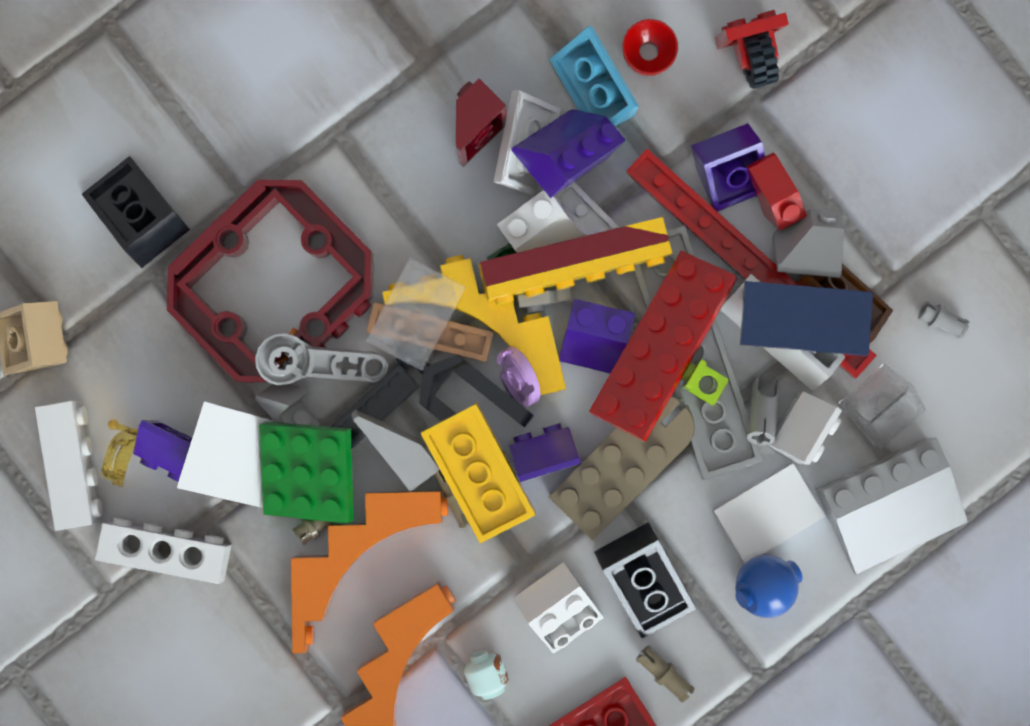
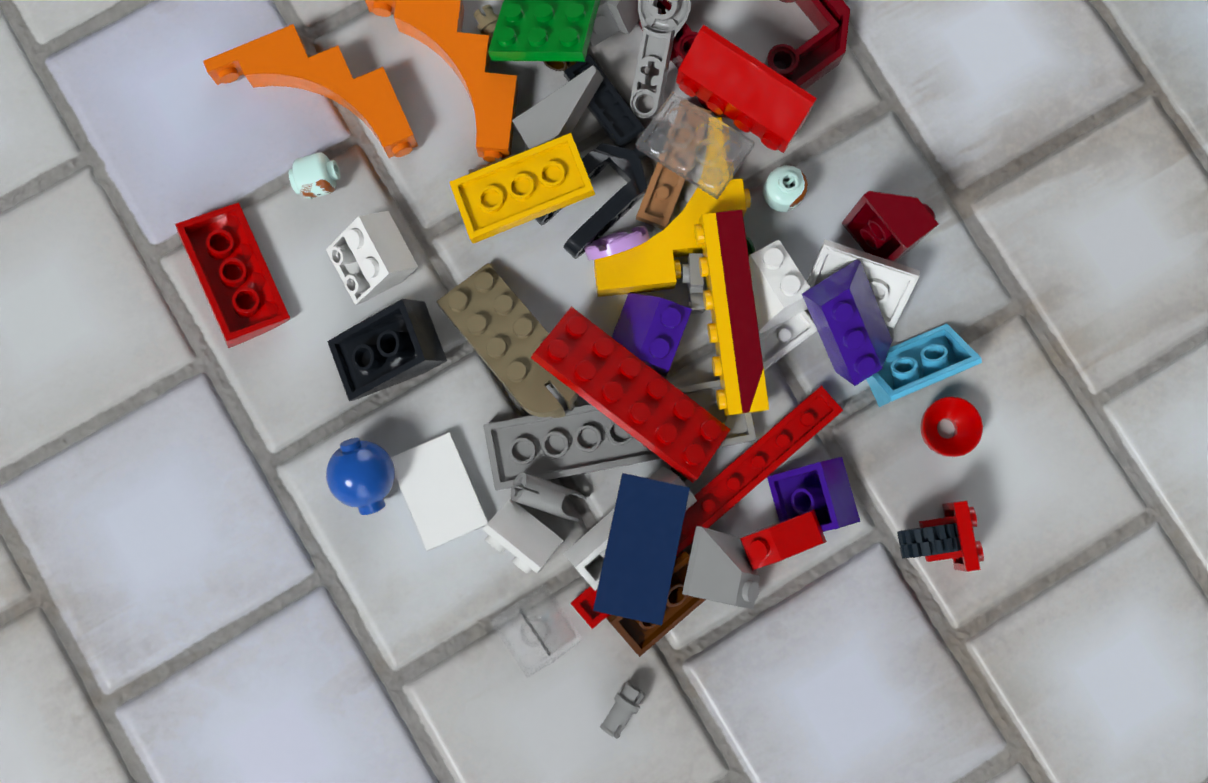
camera: 90 degrees right, 5 degrees down
(362, 272) = (744, 90): none -> red slope
(439, 234) = (785, 188): none -> light aqua head
(544, 453) = (533, 260): dark purple slope -> none
(665, 674) = (286, 359): dark tan pin -> none
(694, 374) = (594, 424): lime bracket -> none
(893, 504) = (428, 627): slope -> none

